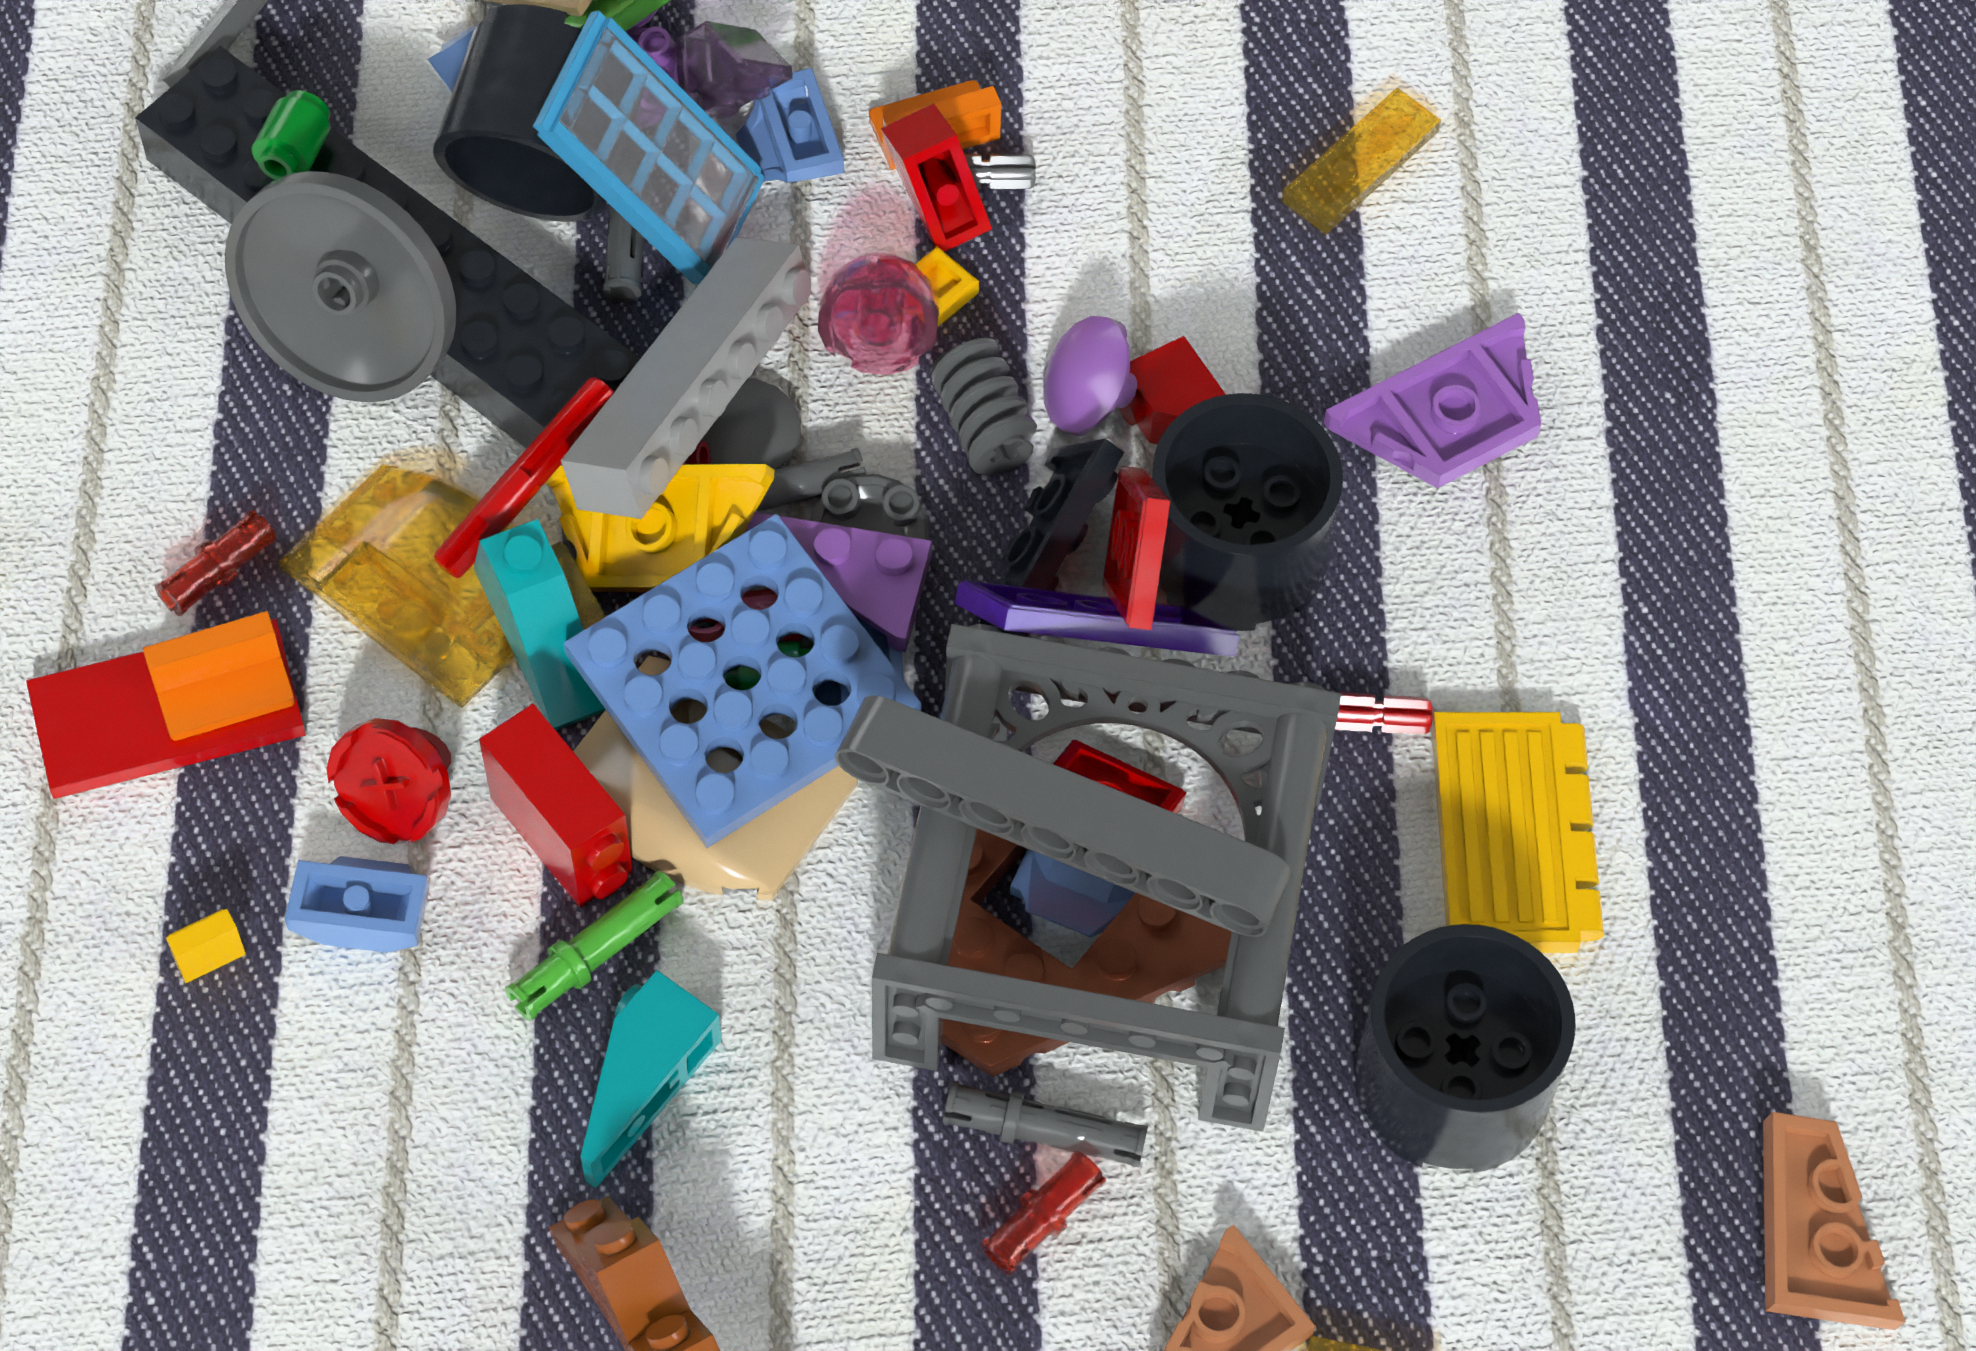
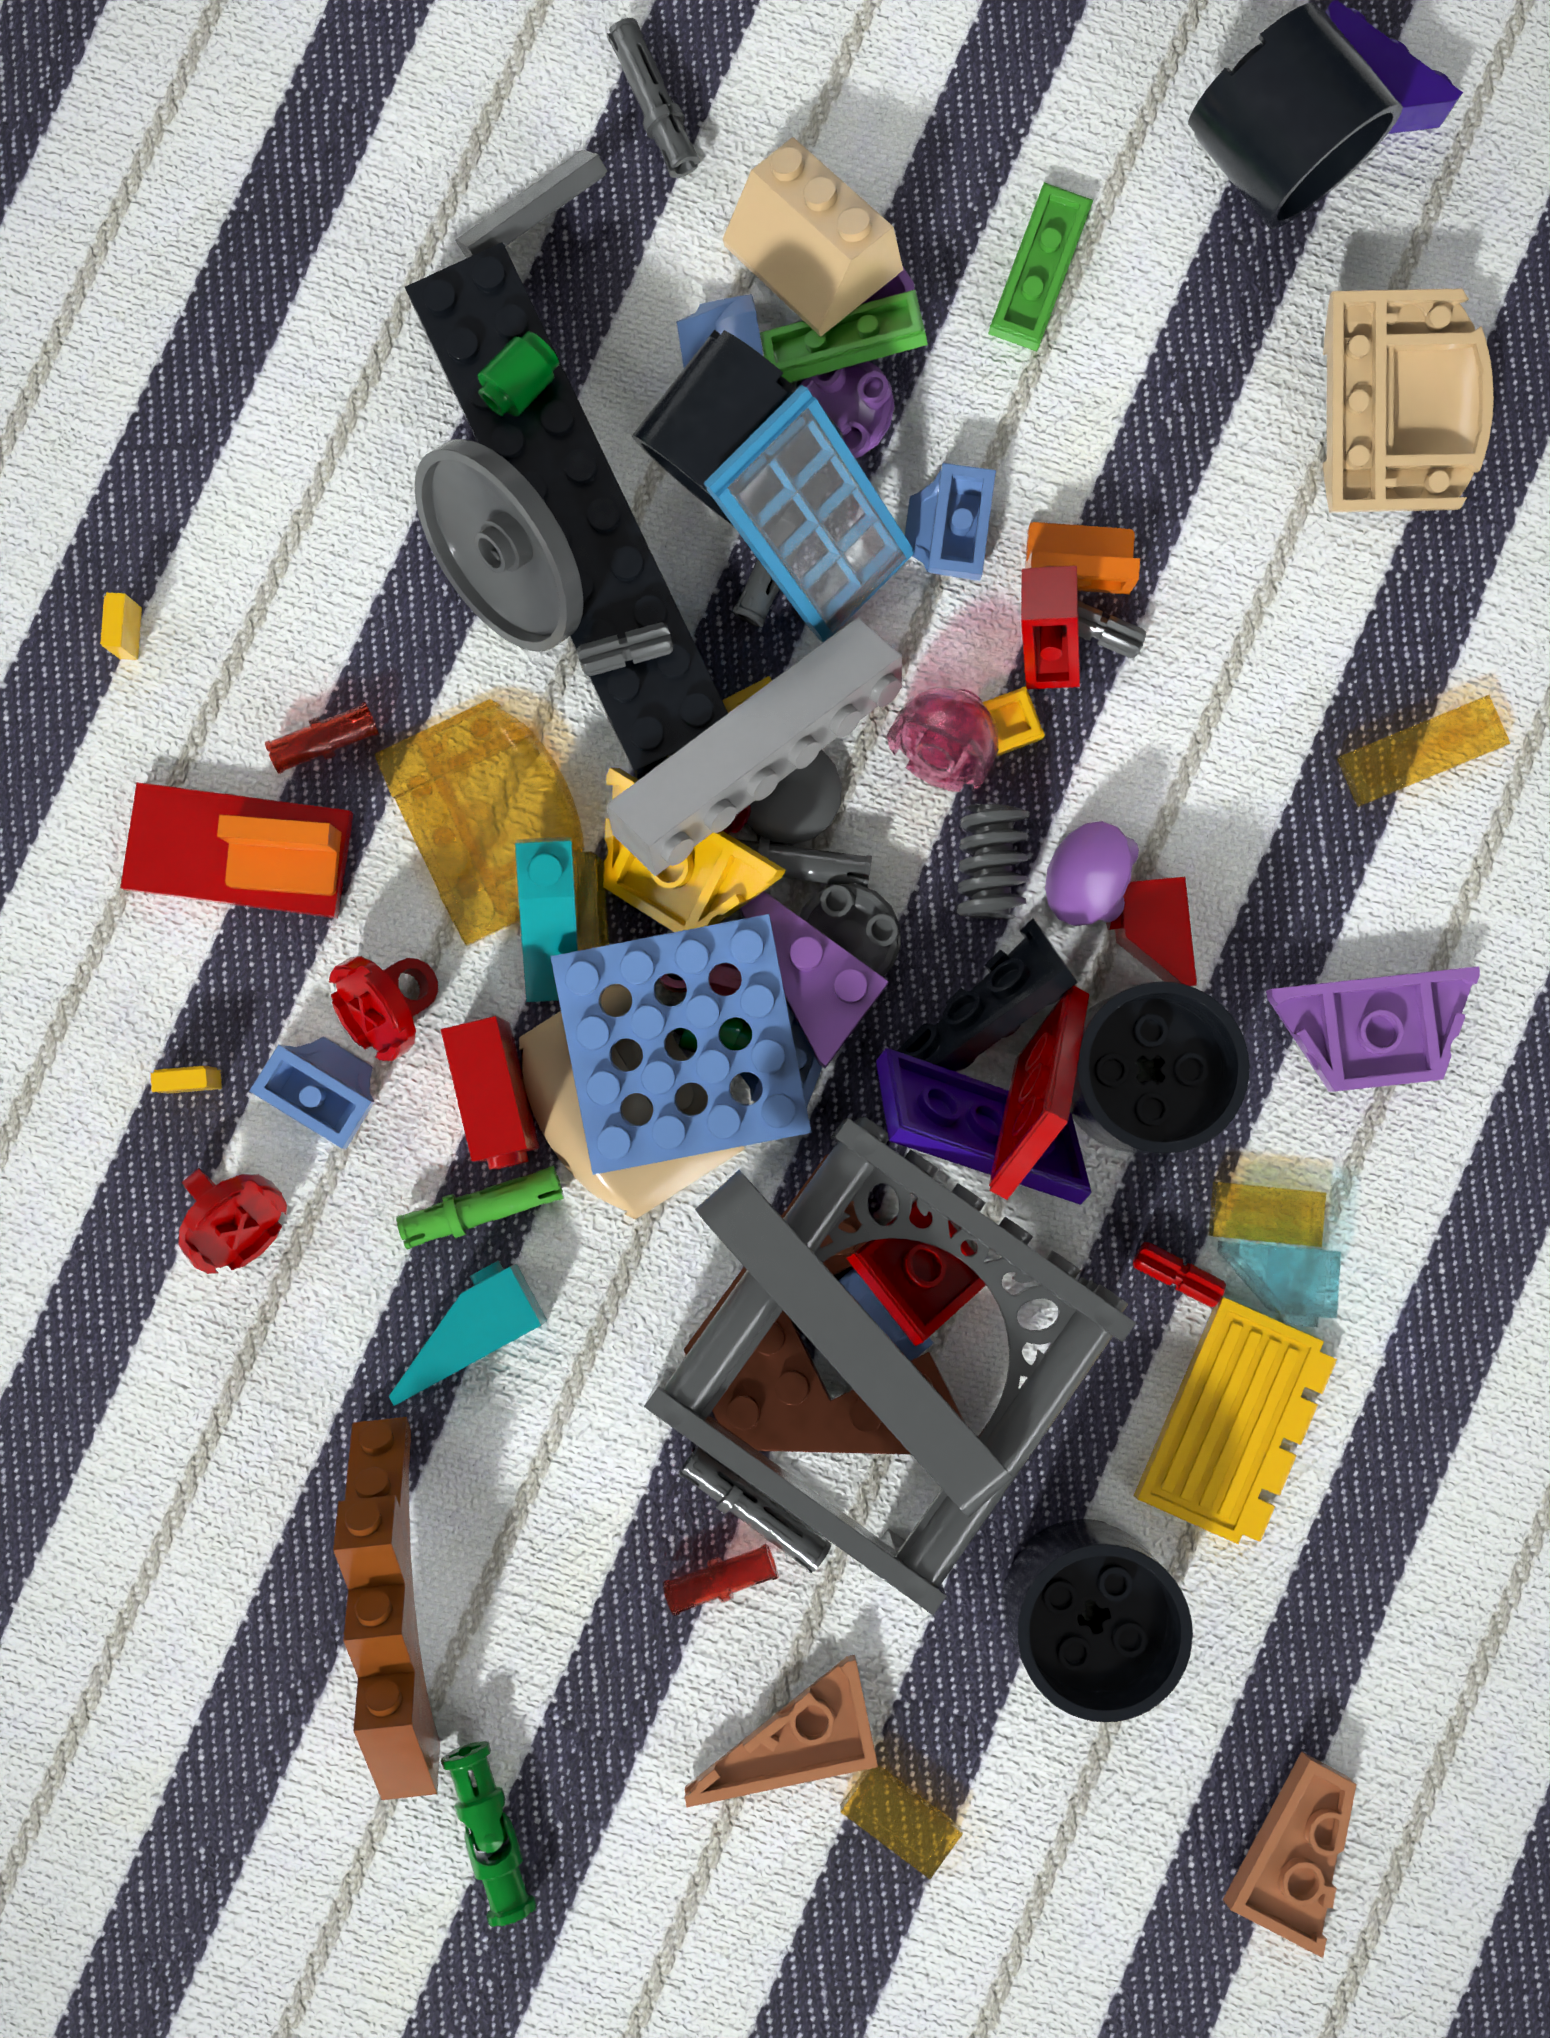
camera: 25 degrees right, 25 degrees up
(318, 1053) = (229, 1220): none -> red tile
(501, 340) = (612, 652): none -> dark grey piece
(522, 479) = (582, 787): red axle -> none
(727, 67) = (922, 444): clear purple slope -> none
(1437, 623) = (1267, 1214): none -> clear yellow tile
(1484, 664) = (1288, 1278): none -> clear light blue slope

